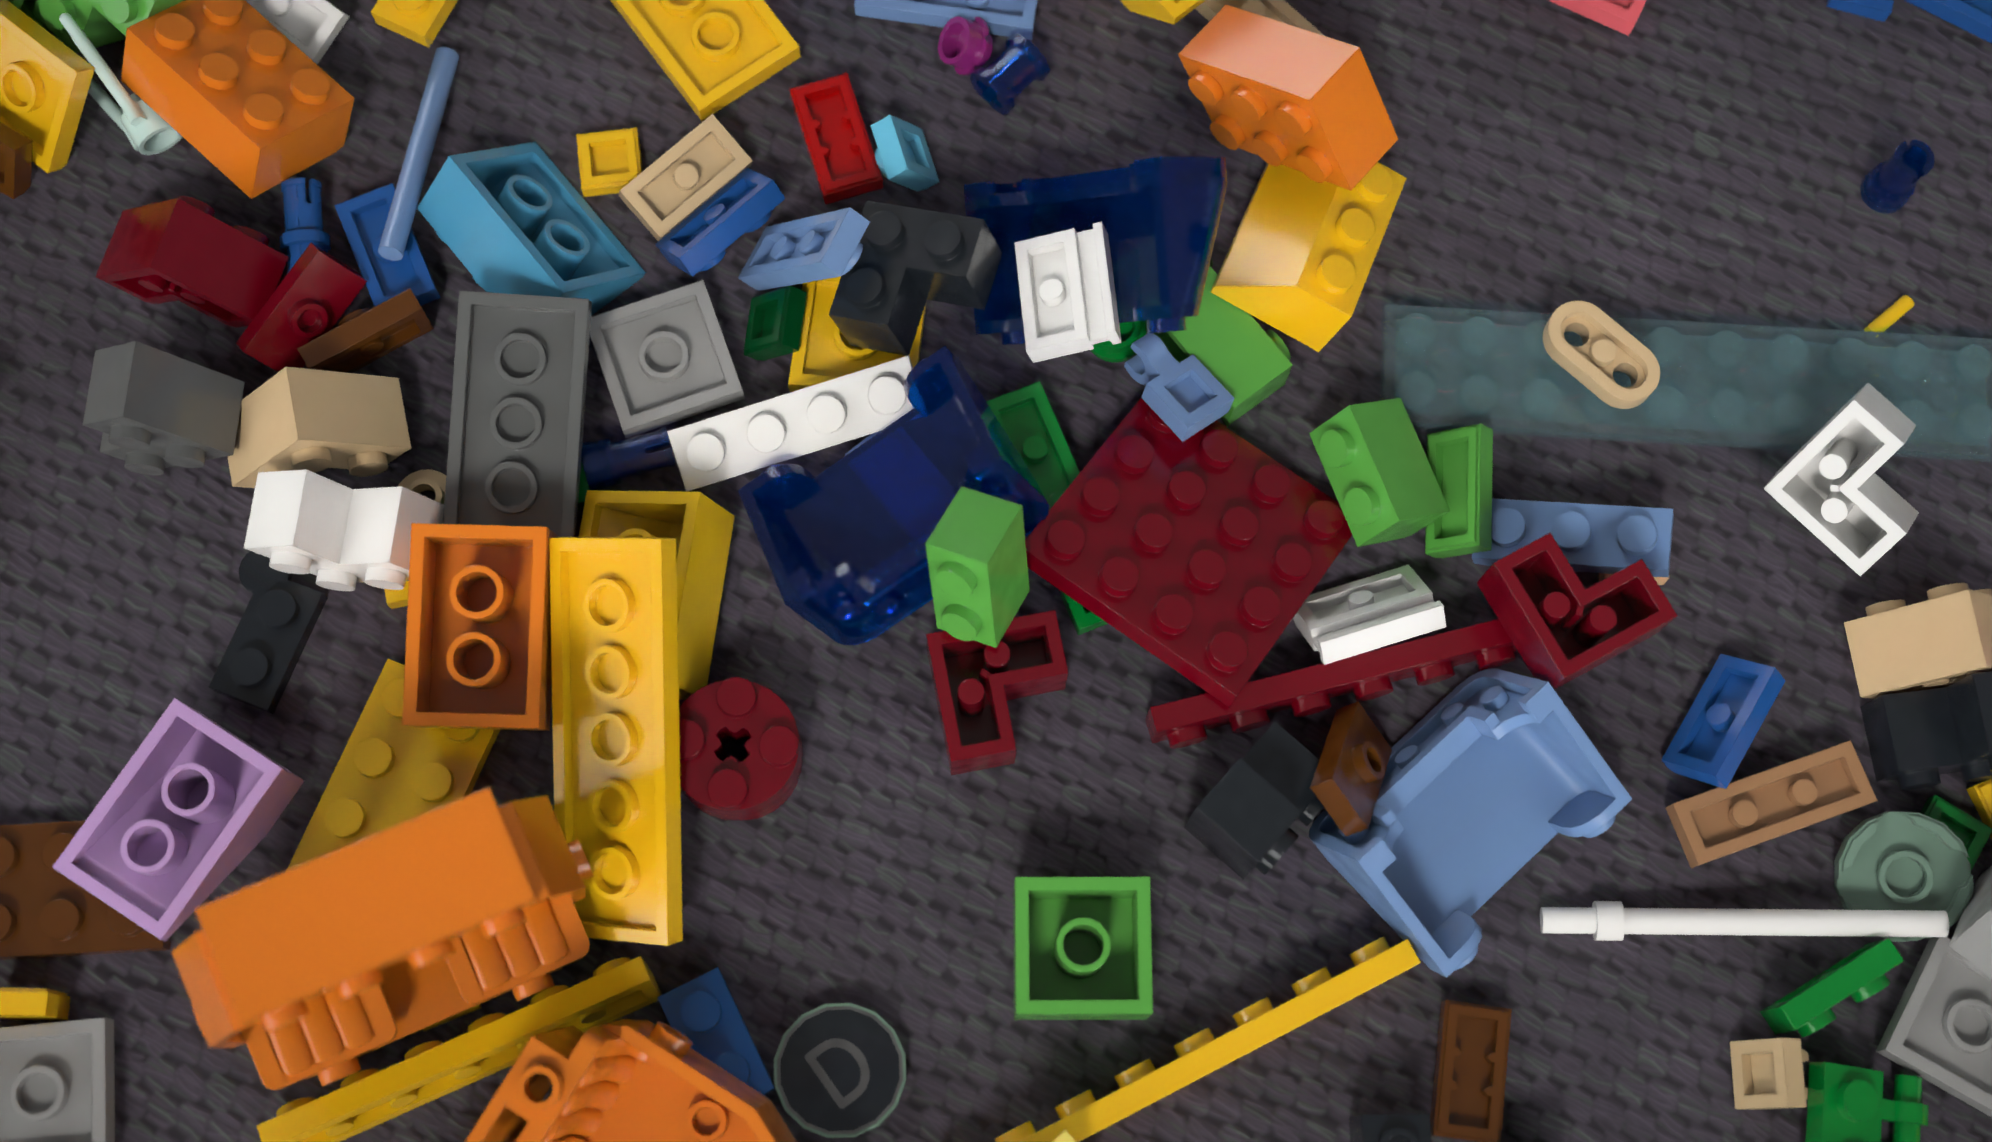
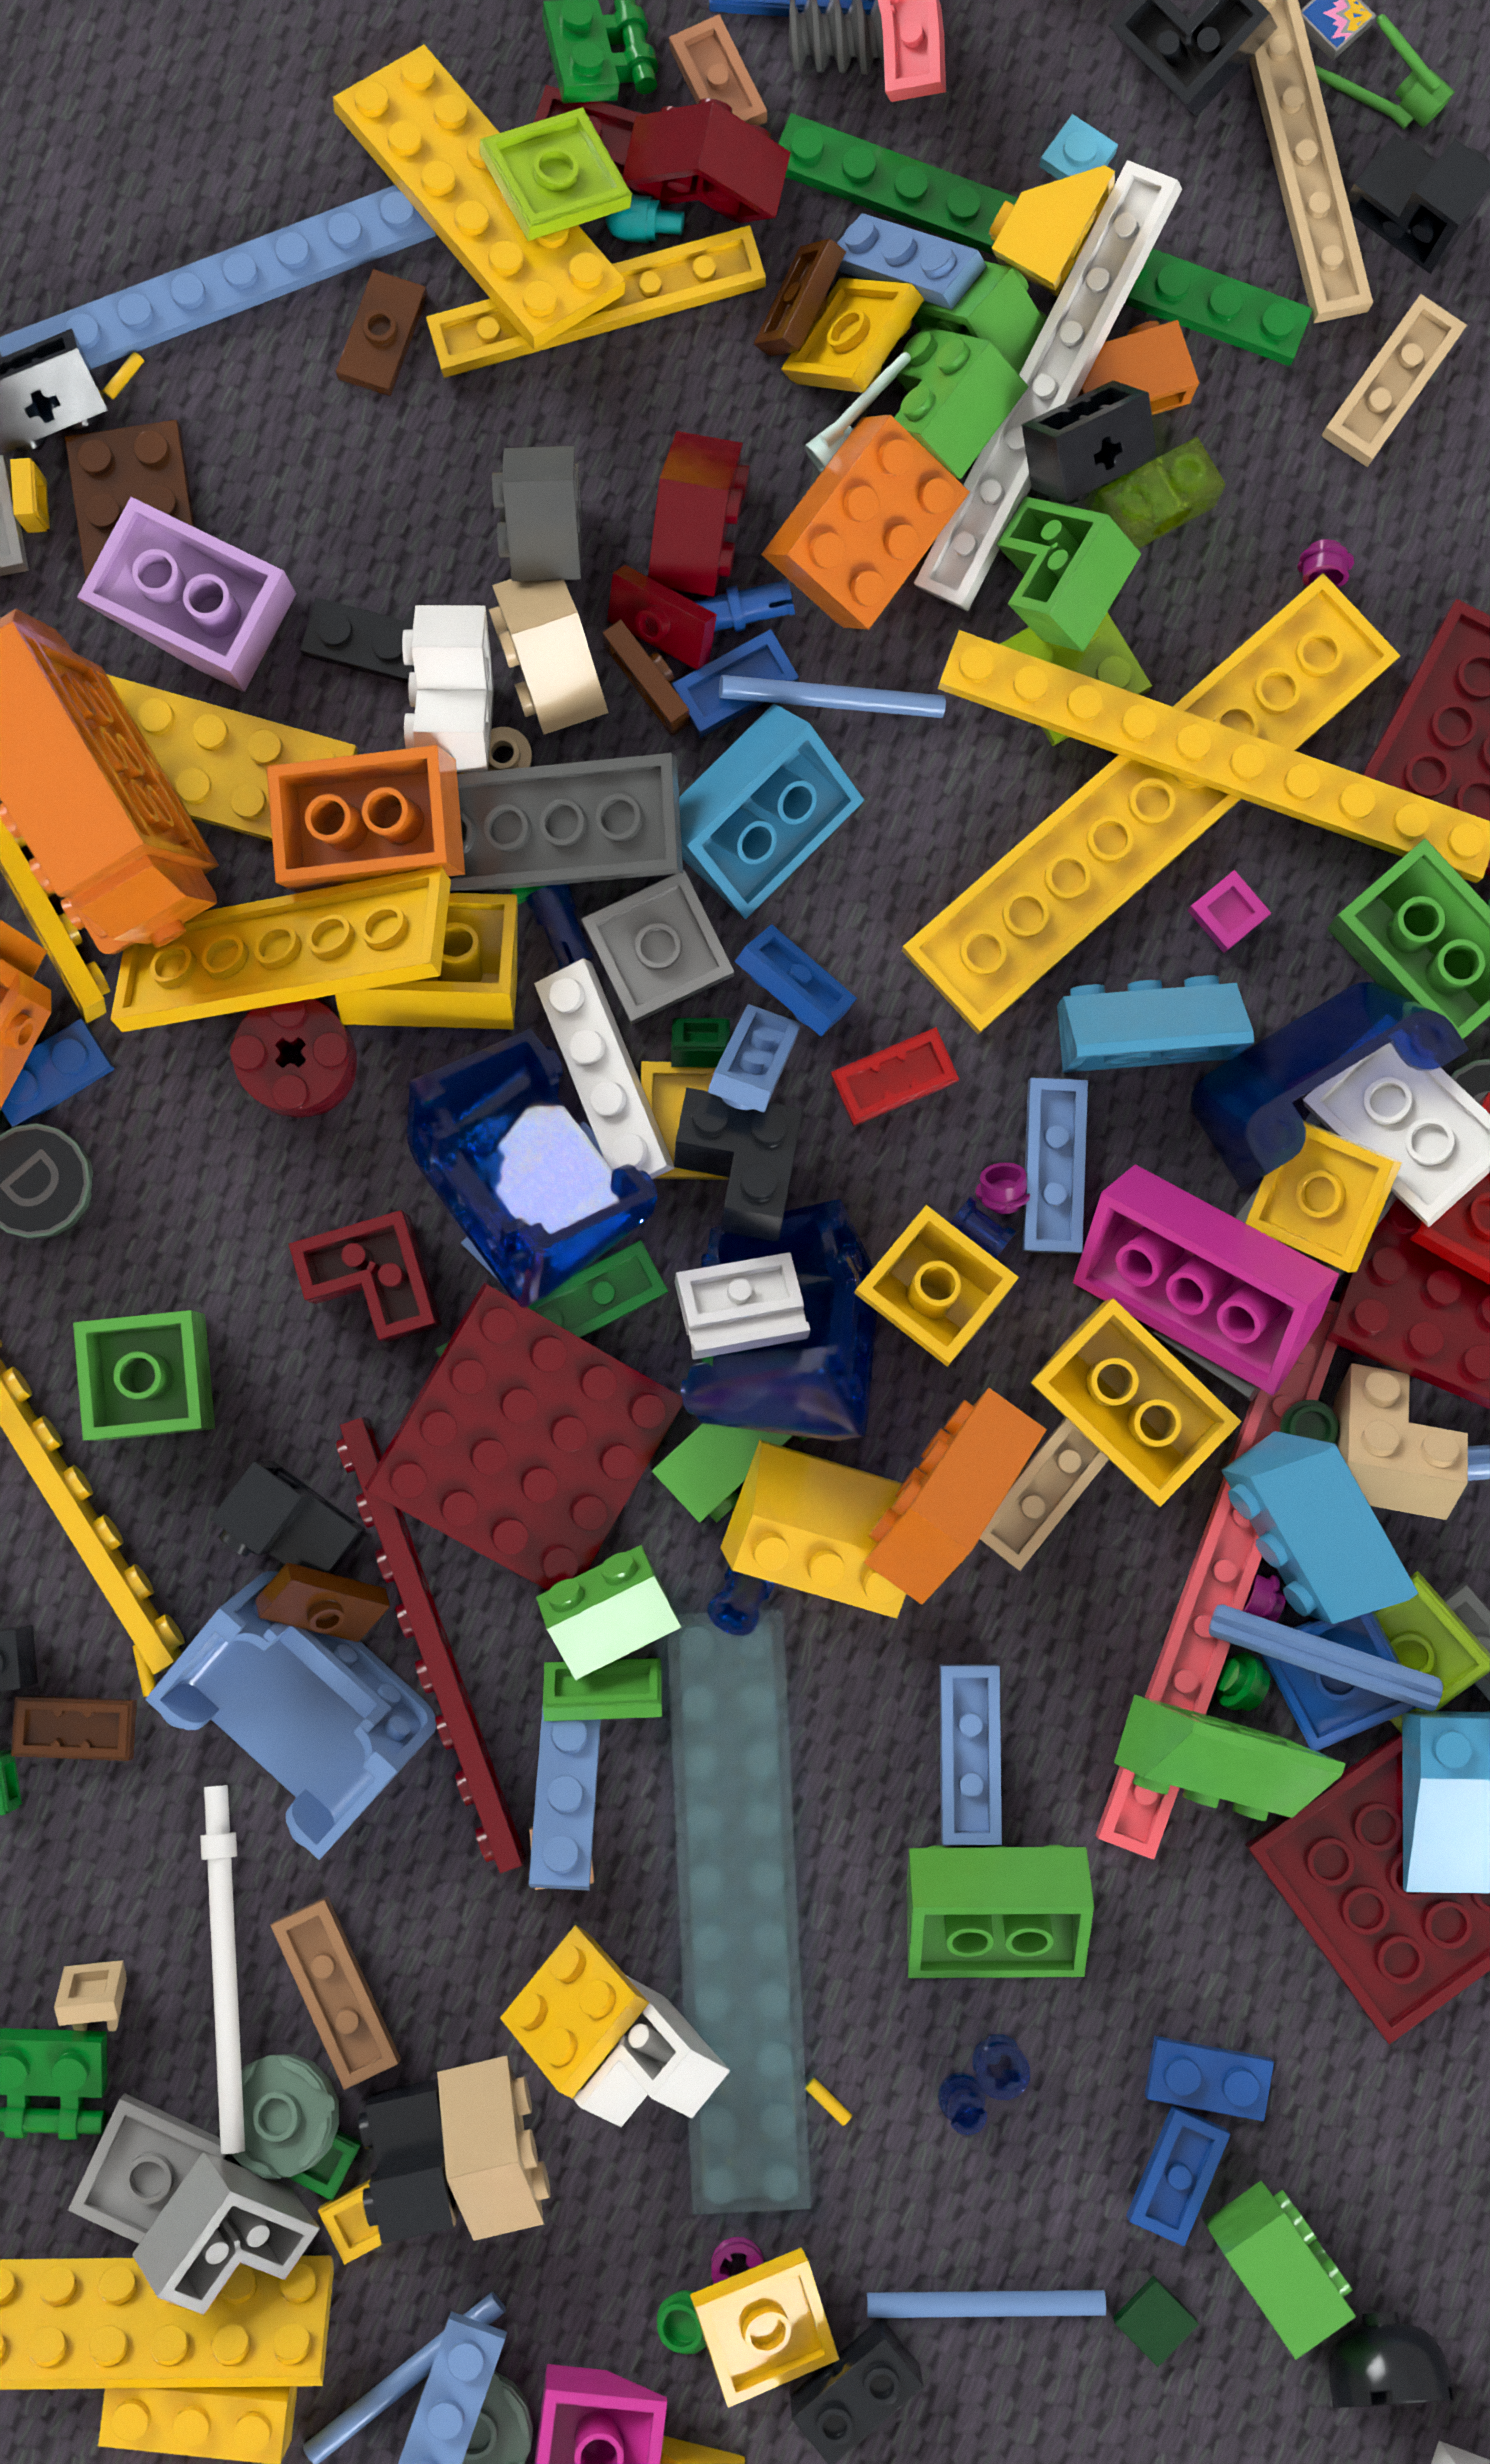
camera: 85 degrees right, 10 degrees up
(608, 160) = (850, 871): yellow tile -> none
(685, 177) = (836, 942): tan plate -> none
(903, 154) = (882, 1142): medium azure plate -> none
(978, 566) = (448, 1246): bright green brick -> none
(1061, 102) = (936, 1285): none -> yellow slope
(1179, 393) = (656, 1424): medium blue plate -> none
(1369, 614) = (472, 1611): white plate -> none
(1371, 339) = (738, 1603): none -> clear blue bush
(1408, 990) = (145, 1674): none -> yellow piece
(1543, 139) = (970, 1754): none -> medium blue plate
(1560, 623) = (451, 1794): dark red brick -> none
(1604, 351) = (741, 1814): tan plate -> none
(1703, 126) = (998, 1912): none -> bright green slope
(1723, 720) = (407, 1945): blue plate -> none
(1800, 545) = (574, 2011): none -> yellow plate
(1856, 976) = (184, 2069): green plate -> none
(1867, 143) = (1012, 2081): none -> clear blue bush

